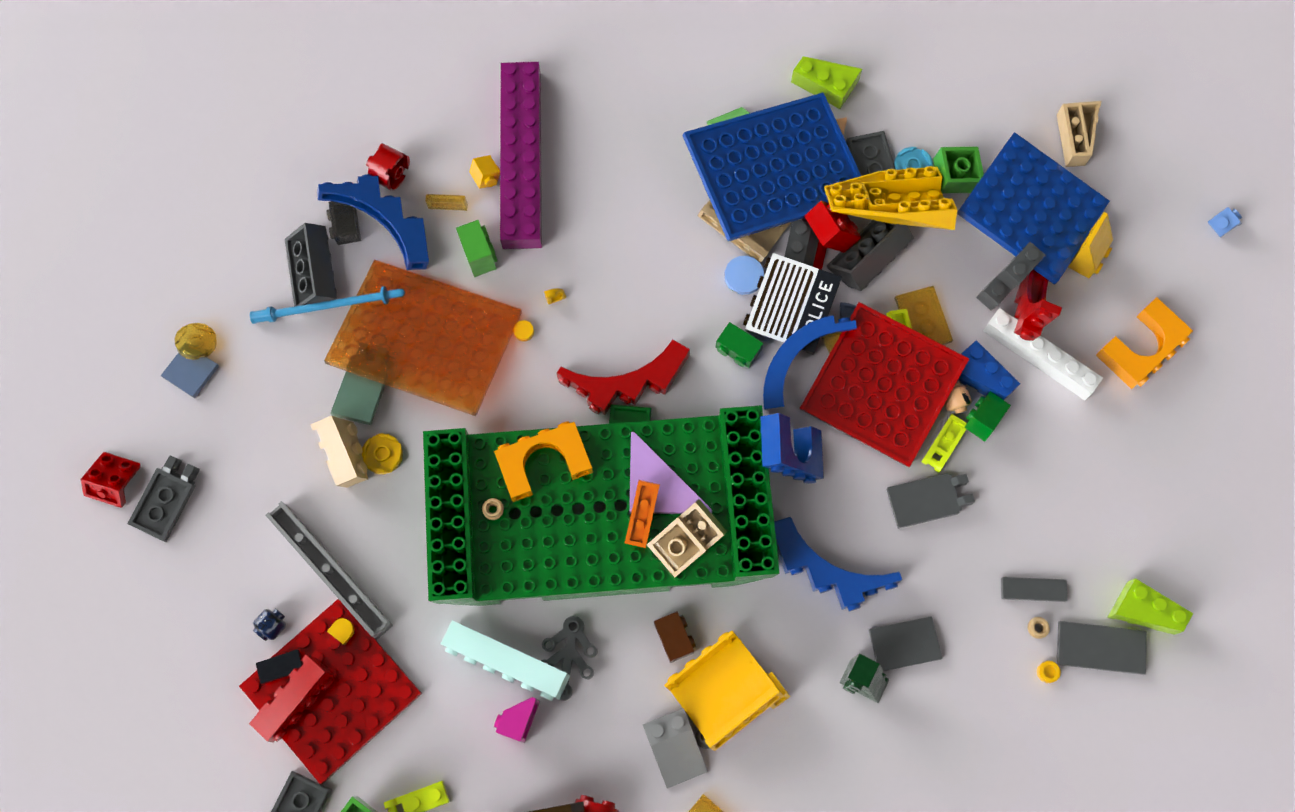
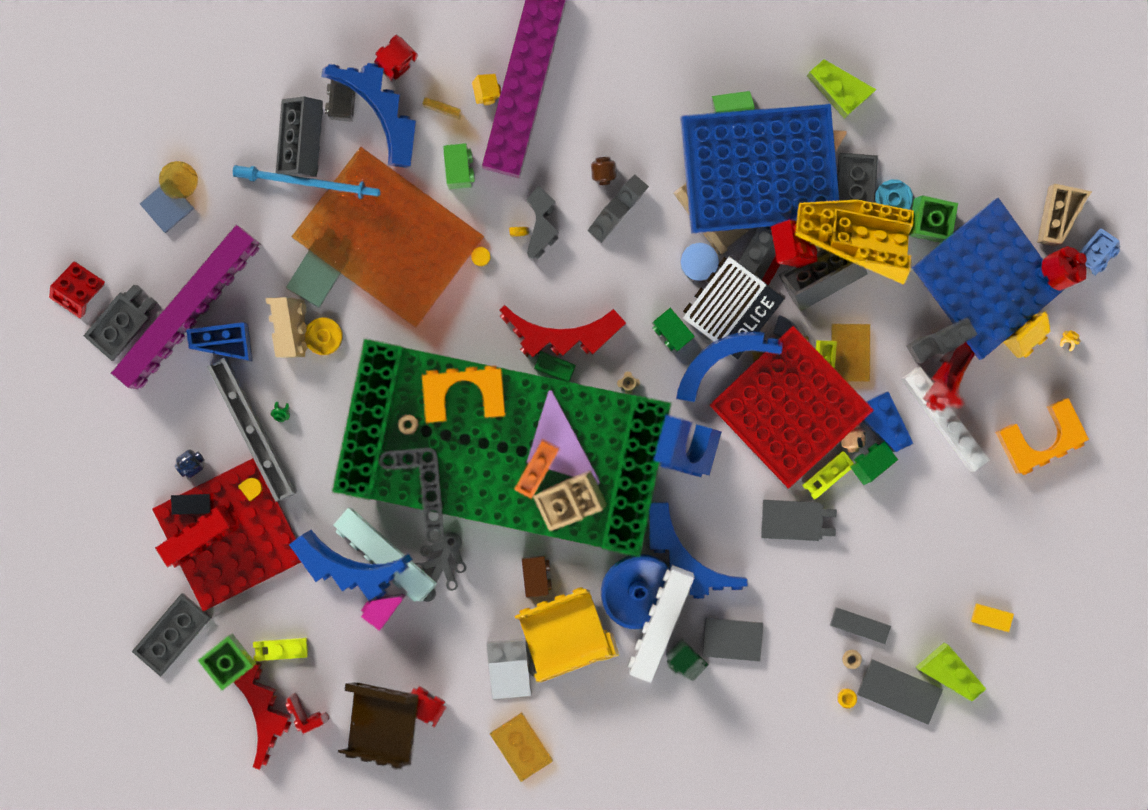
camera: 15 degrees right, 15 degrees up
(229, 463) = (186, 308): none -> magenta brick
(275, 484) = (223, 340): none -> blue wedge
(355, 544) = (280, 414): none -> green plate
(442, 689) = (326, 563): none -> blue arch
(530, 566) = (426, 486): none -> dark grey beam
(580, 287) = (543, 232): none -> dark grey arch
(622, 215) = (603, 170): none -> reddish brown head
(646, 246) = (617, 208): none -> dark grey arch
(707, 405) = (623, 383): none -> tan plate
(789, 620) = (632, 589): none -> blue dish
(824, 647) = (661, 623): none -> white brick
(1103, 177) = (1064, 268): none -> red brick
(1128, 157) = (1100, 250): none -> medium blue bracket
(1134, 242) = (1071, 337): none -> yellow plate
(1167, 540) = (992, 617): none -> yellow tile

